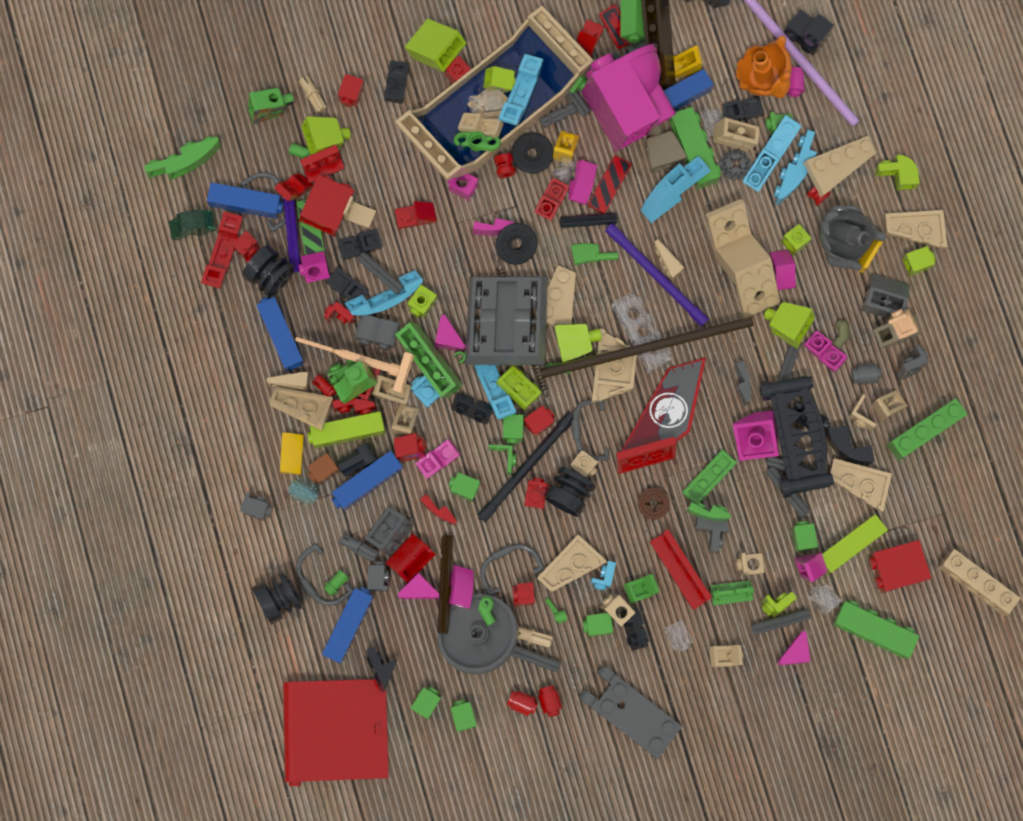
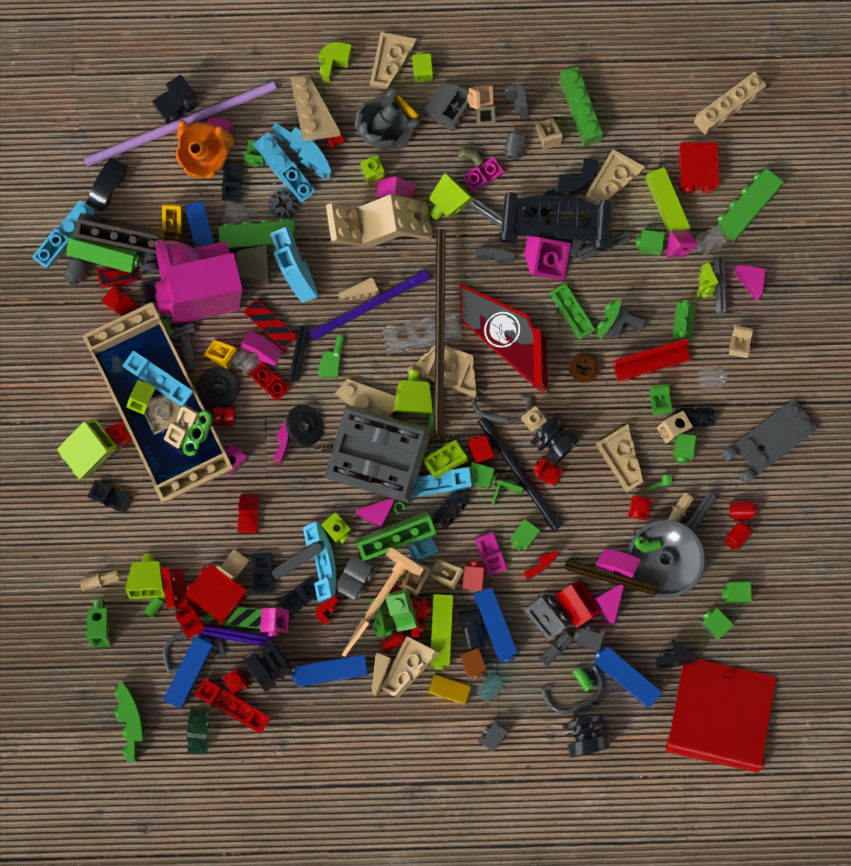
camera: 70 degrees left, 0 degrees up
(350, 90) = (107, 542): red brick -> none
(501, 553) = (594, 518): dark grey piece -> none
(607, 573) = (639, 426): medium azure bracket -> none
(736, 134) = (257, 194): tan brick -> none
(741, 564) = (660, 303): tan bracket -> none
(860, 420) = (555, 163): tan bracket -> none

